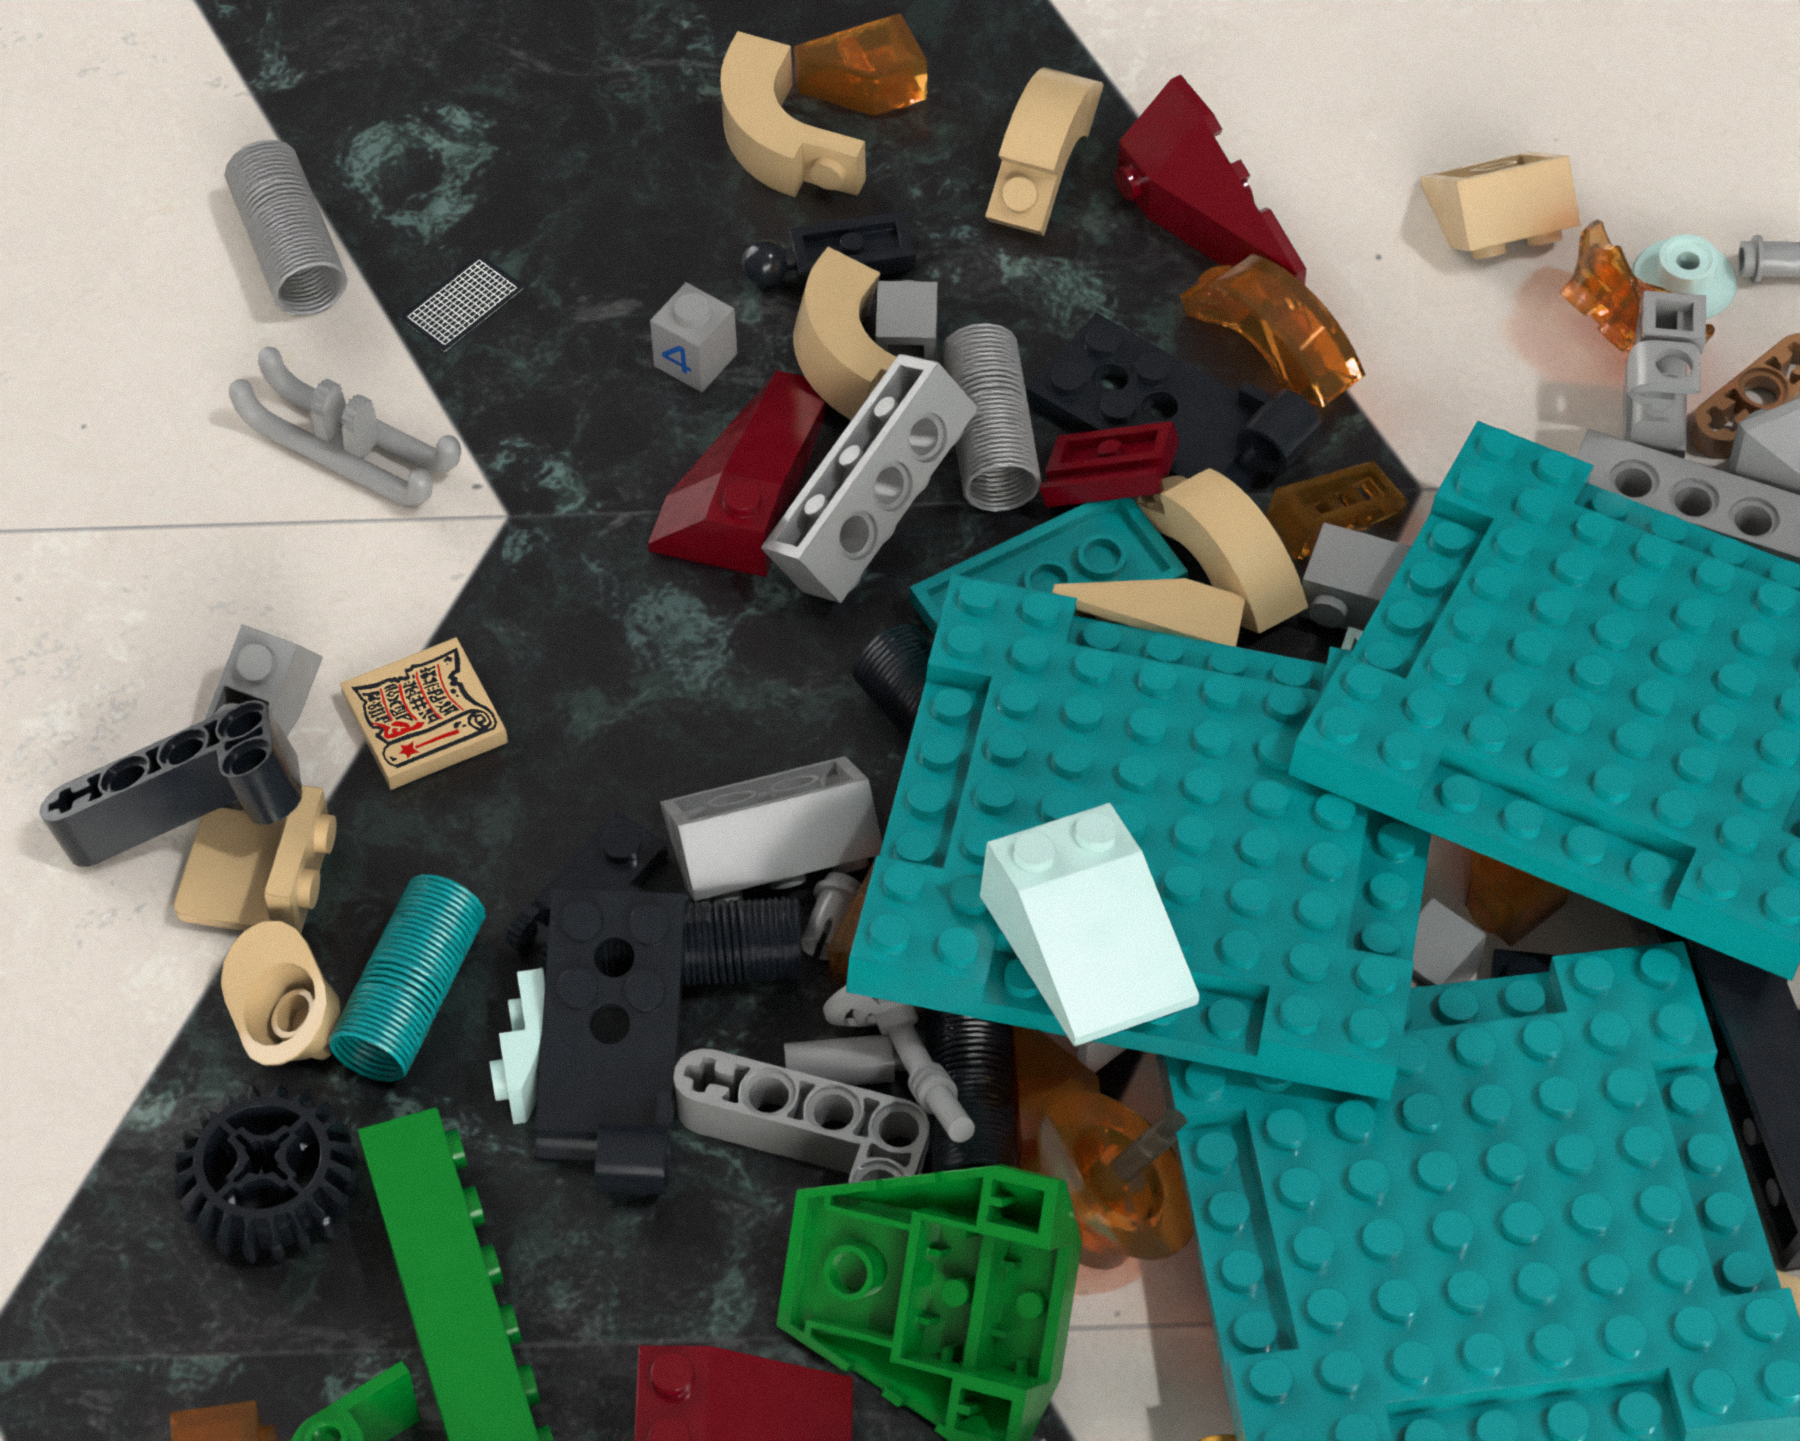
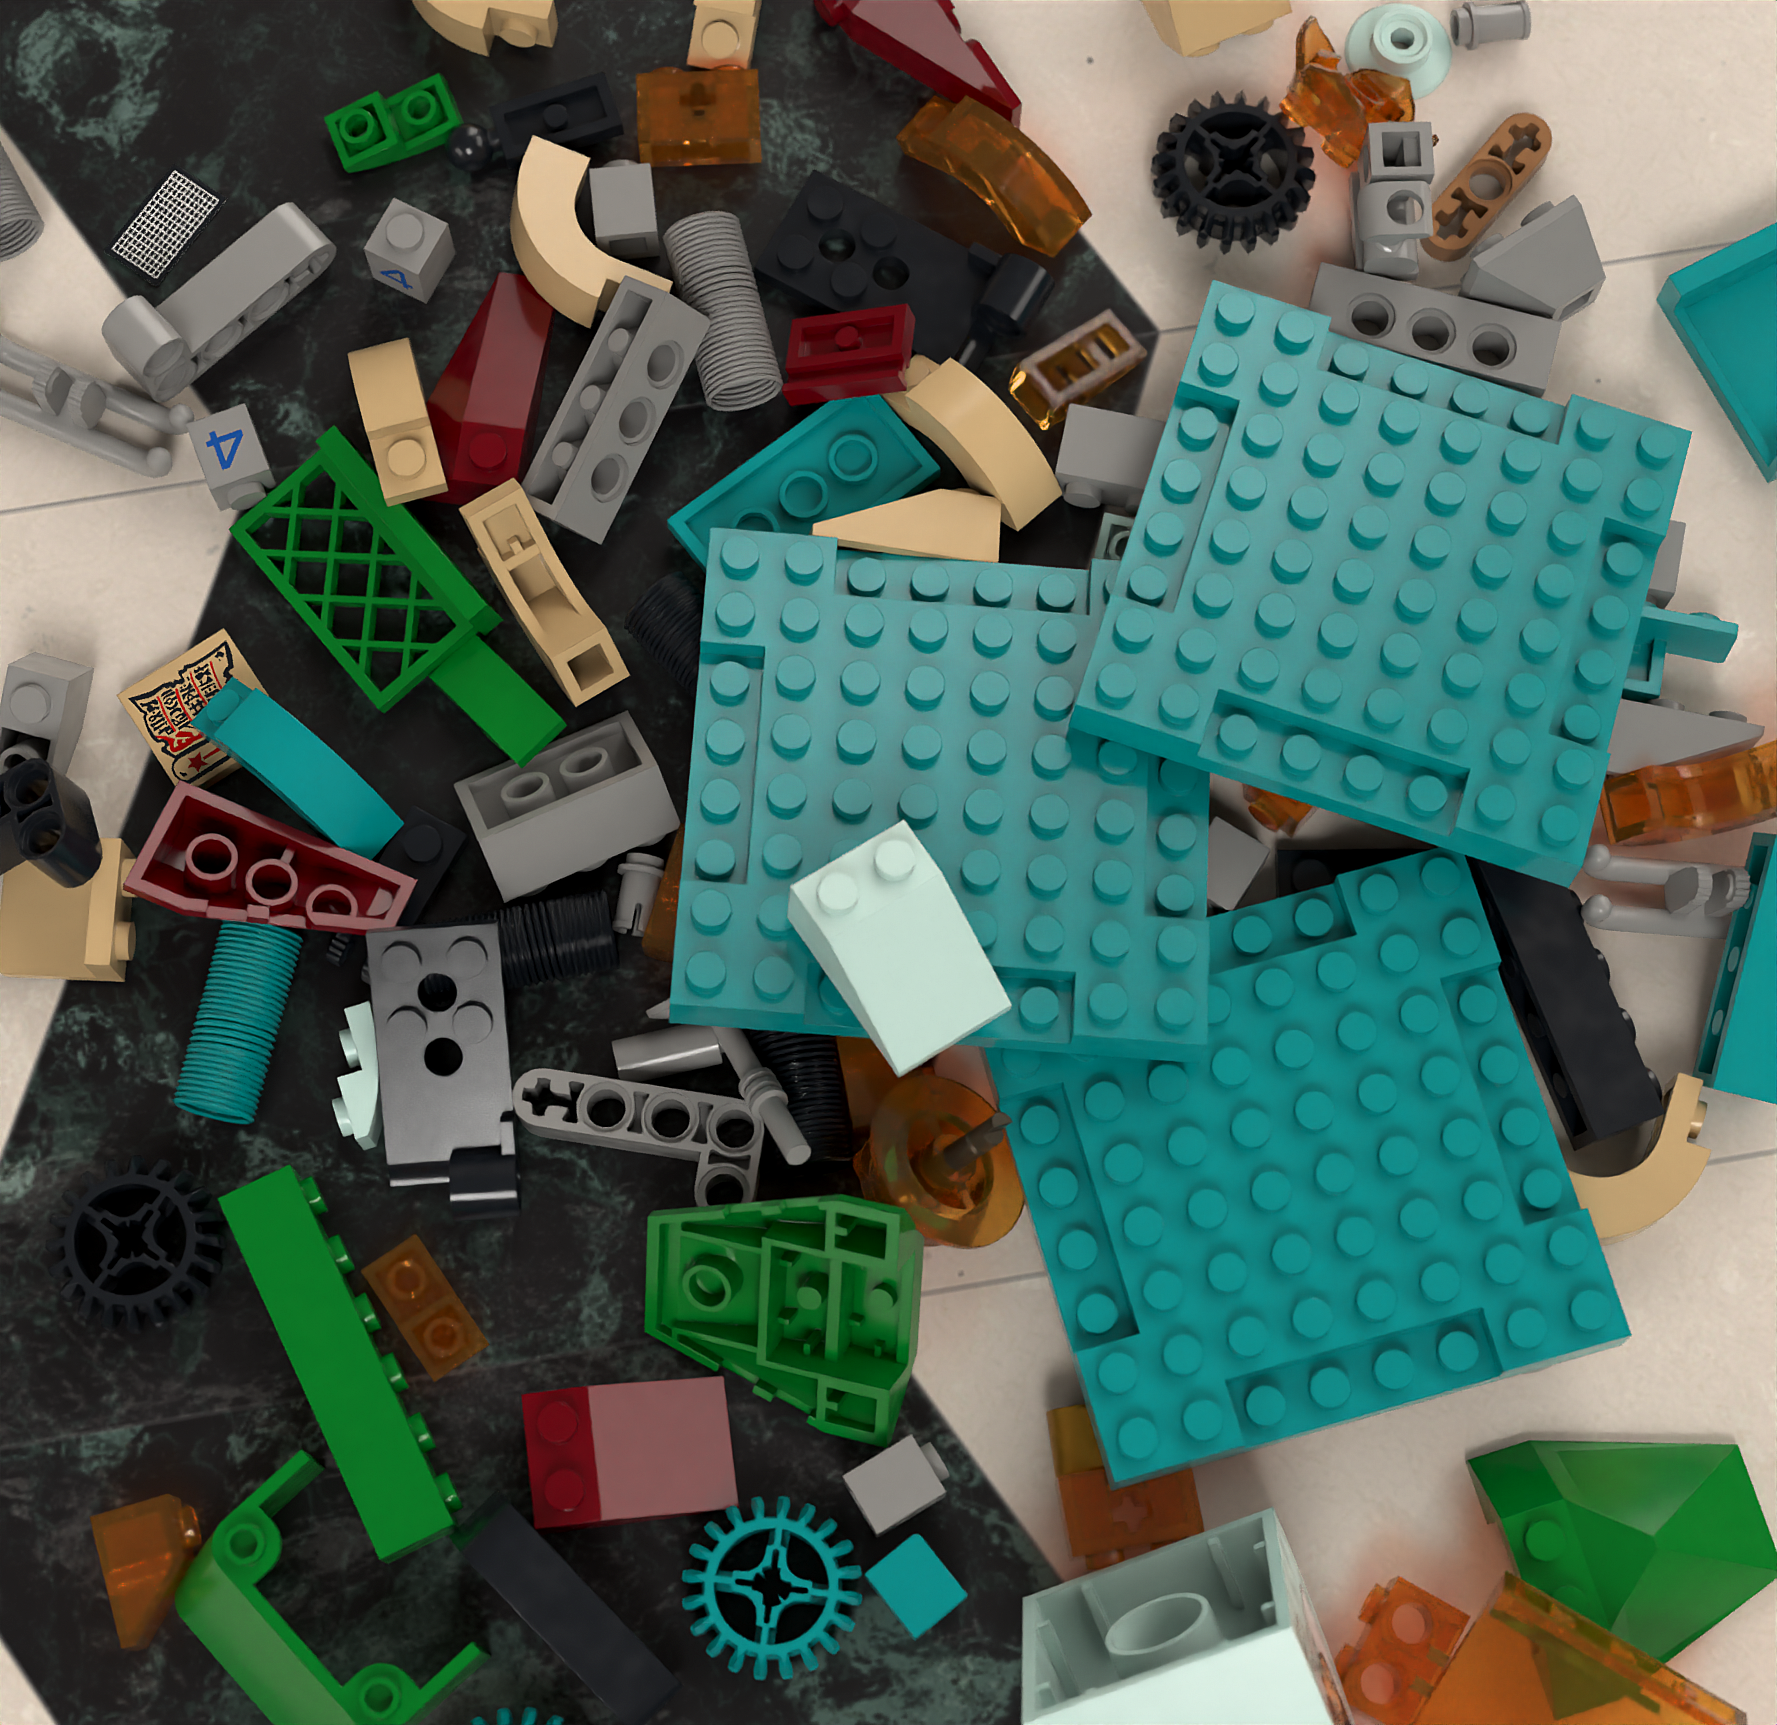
camera: 10 degrees left, 20 degrees up
(278, 995) = (116, 1060): tan piece -> none
(442, 828) = (246, 867): none -> dark red wedge
(491, 492) = (232, 458): none -> light grey brick
(500, 367) = (219, 305): none -> light grey beam
(515, 756) = (298, 768): none -> teal arch
(551, 1271) = (424, 1307): none -> clear orange slope
(654, 583) = (404, 535): none -> green fence
(658, 468) = (397, 421): none -> tan arch
(685, 245) = (394, 128): none -> green slope
(717, 726) = (498, 701): none -> green slope
(782, 656) = (542, 594): none -> tan arch
(991, 258) = (723, 135): none -> clear orange brick
(1509, 369) = (1204, 139): none -> black gear

